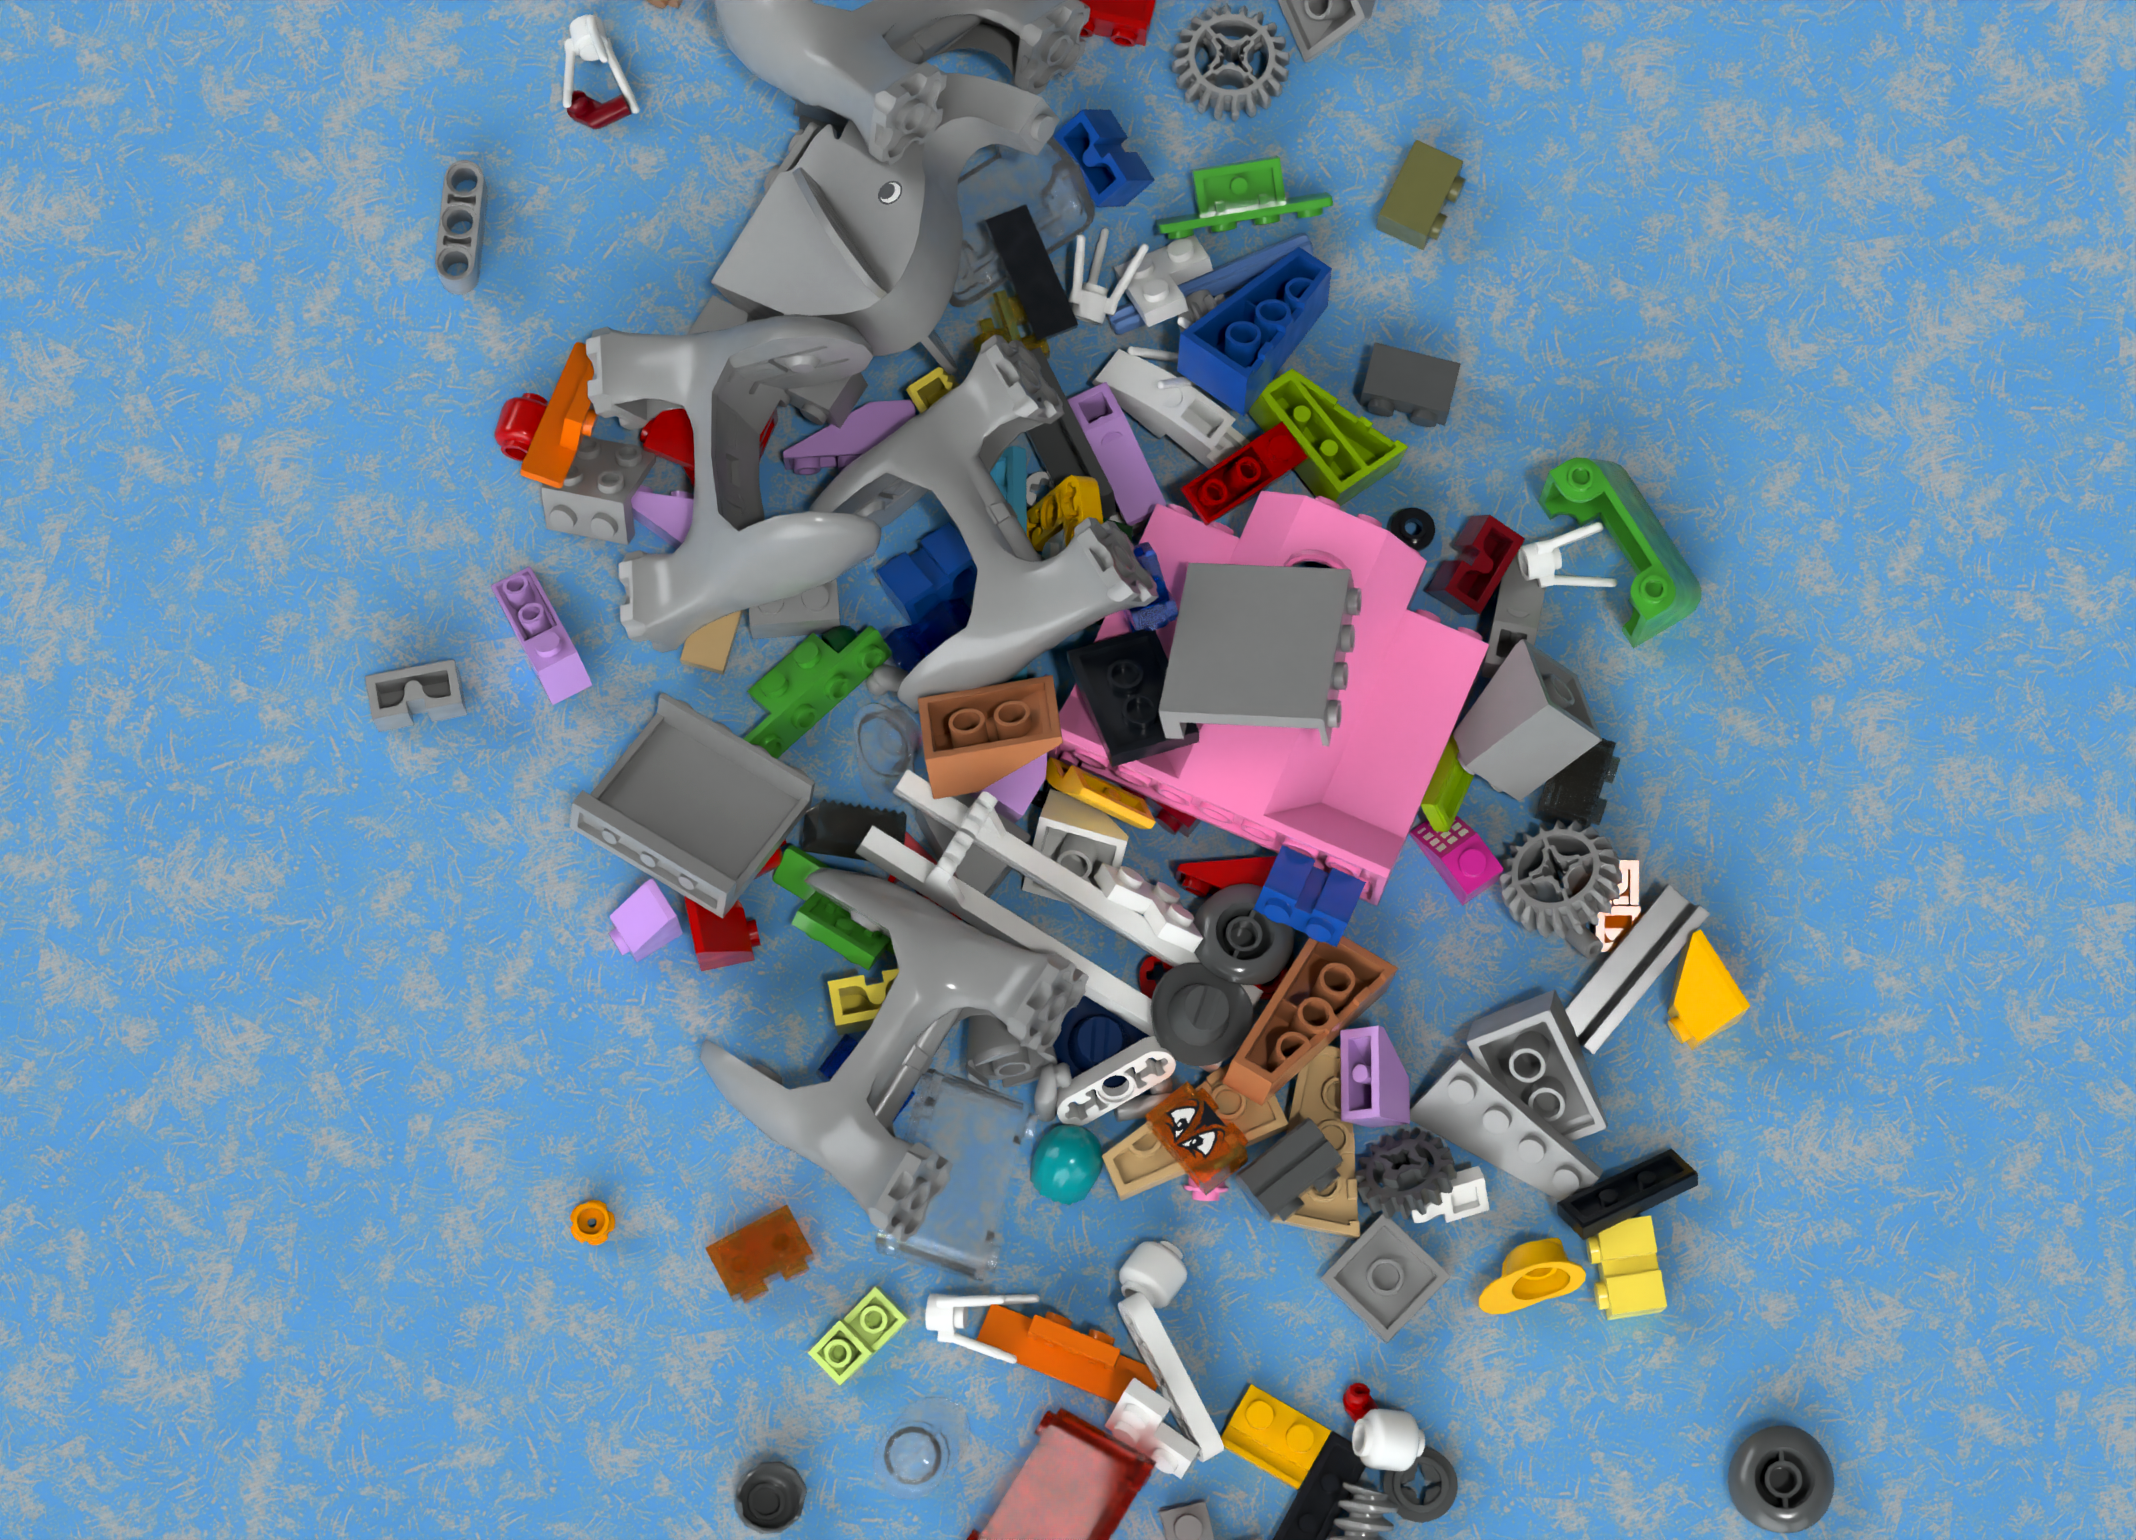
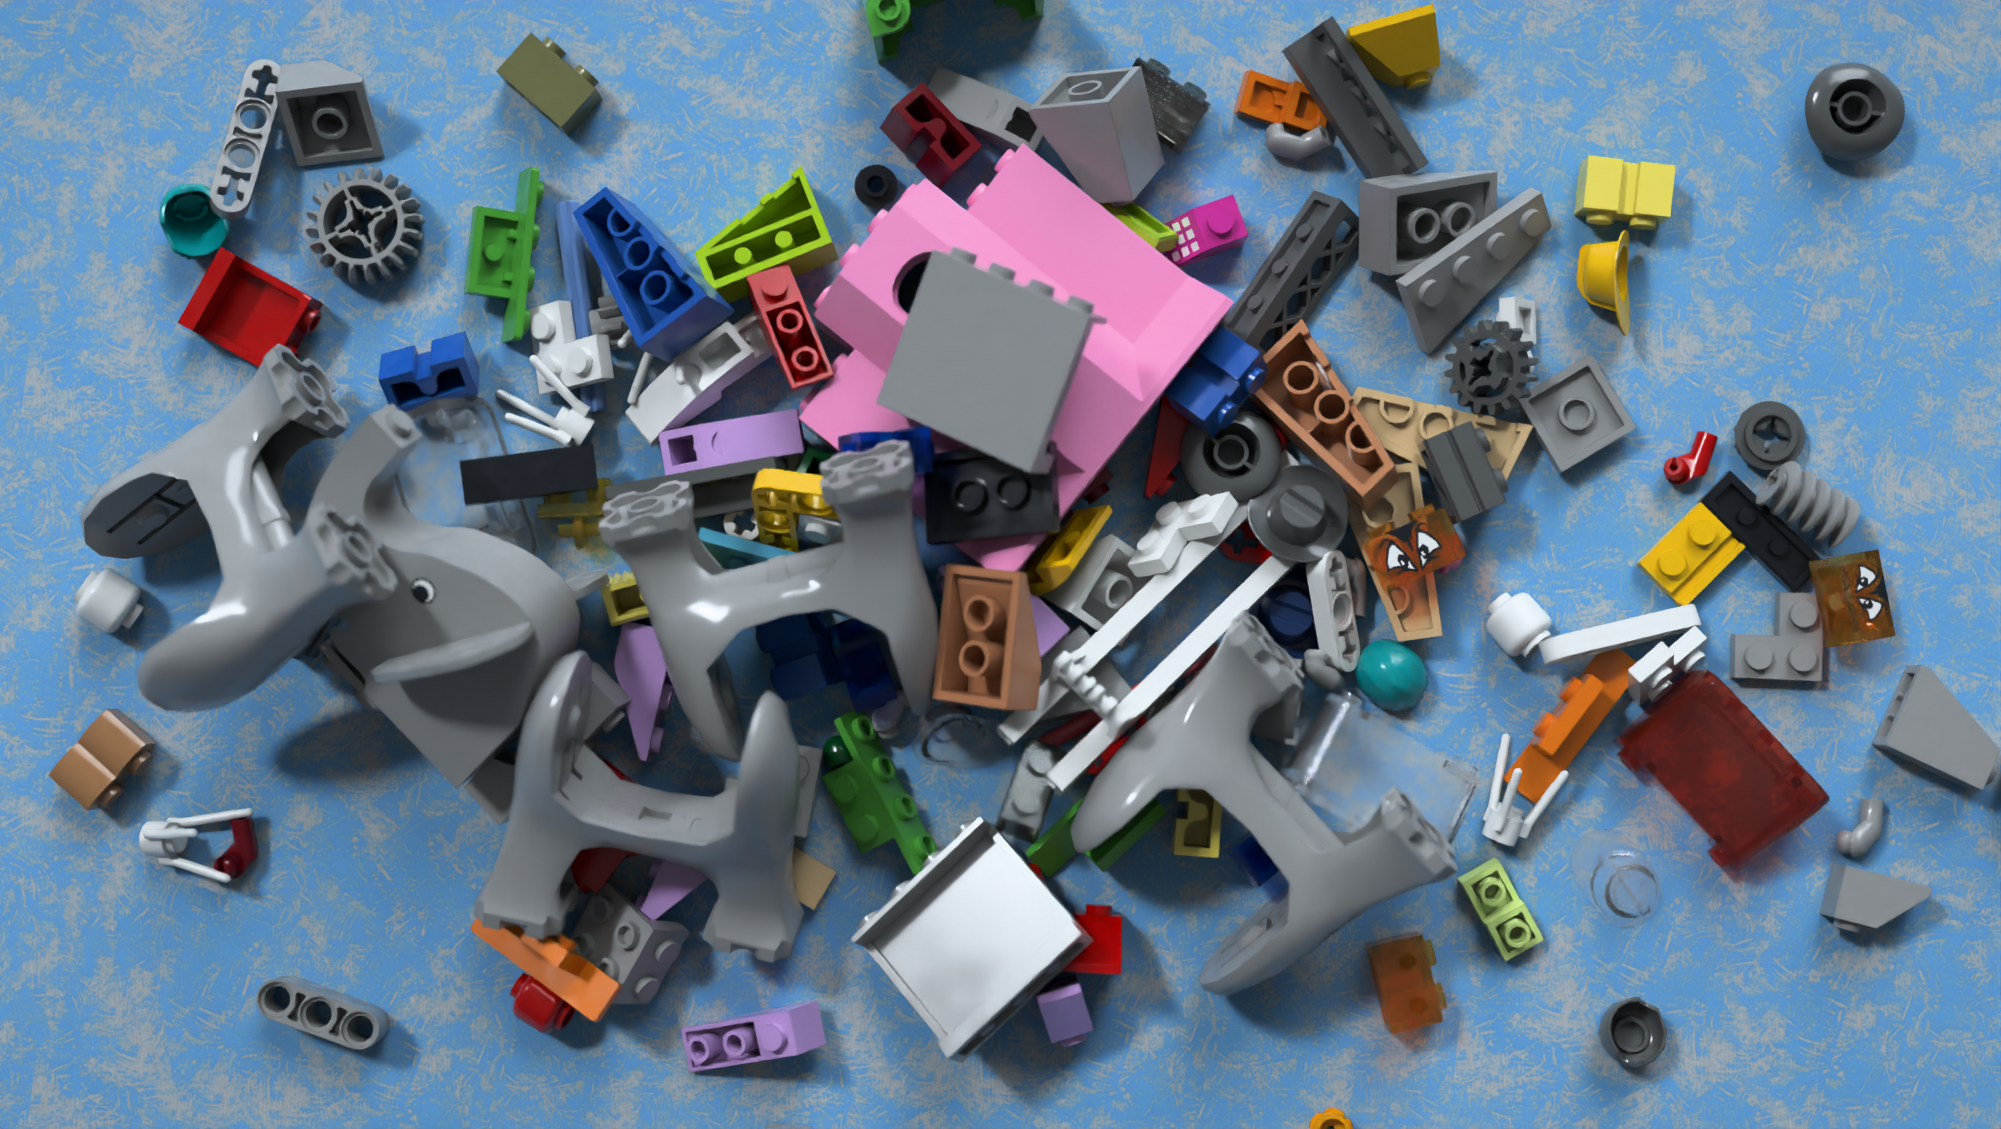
camera: 70 degrees left, 10 degrees up
(1372, 1080) = (1396, 373): lavender slope -> none
(1388, 1440) = (1730, 453): white head -> none
(1409, 384) = (735, 147): dark grey brick -> none
(1447, 948) = (1289, 271): none -> dark grey fence
(1542, 559) = (942, 71): white plant -> none
(1588, 873) = (1254, 128): light grey gear -> none
(1627, 1194) = (1560, 171): black tile -> none

